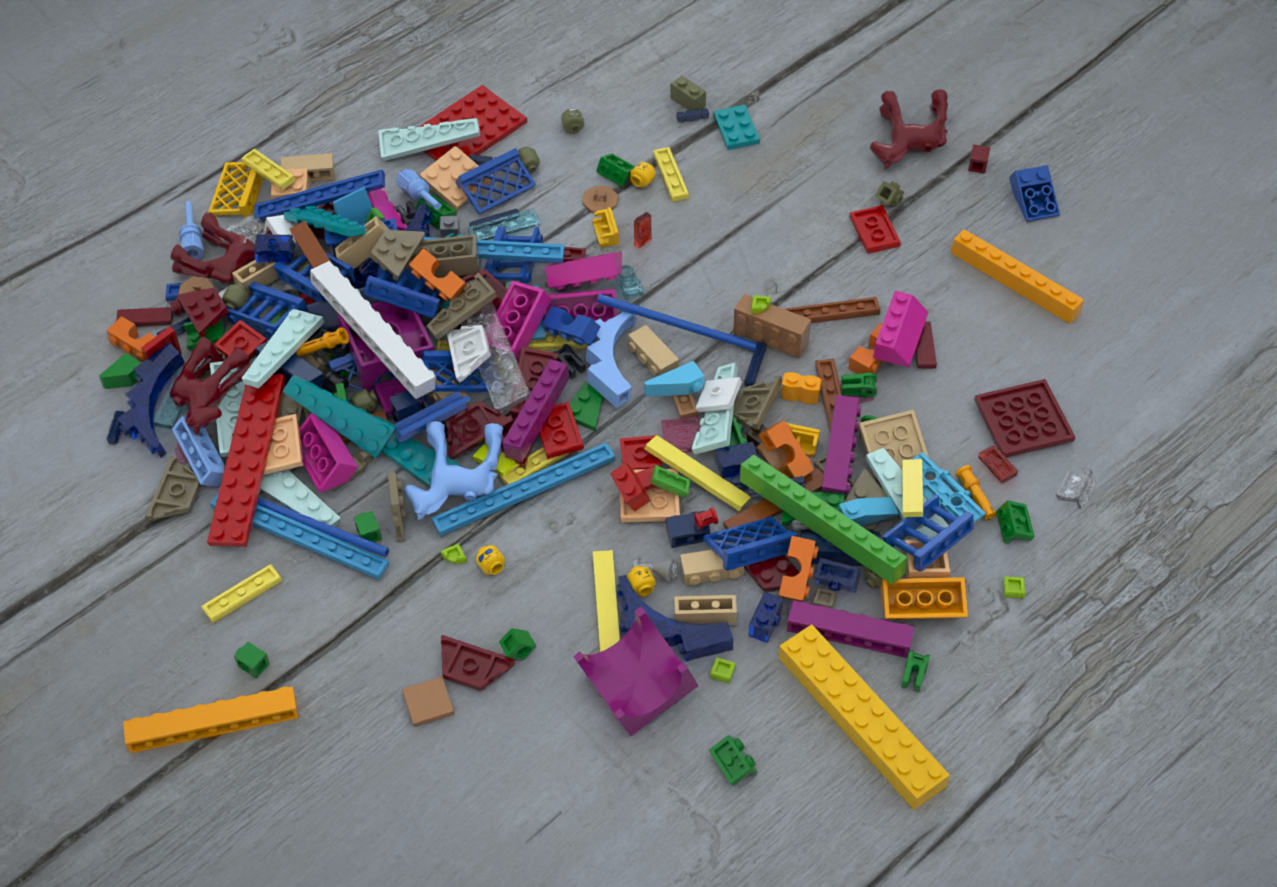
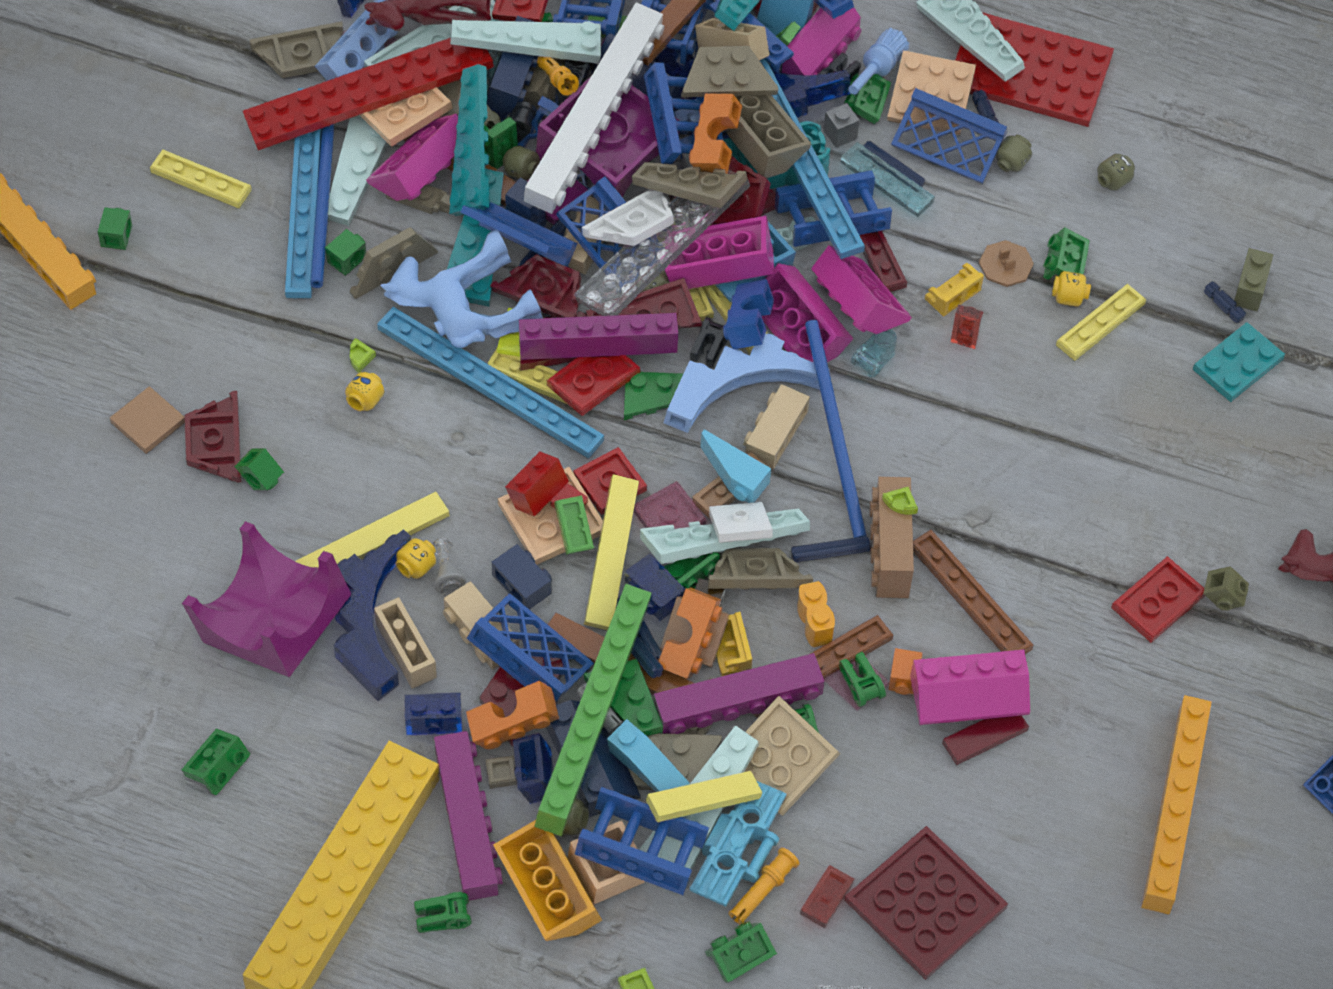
camera: 60 degrees right, 5 degrees up
(706, 518) = (532, 583): red bush -> none
(722, 670) = (339, 700): lime tile -> none

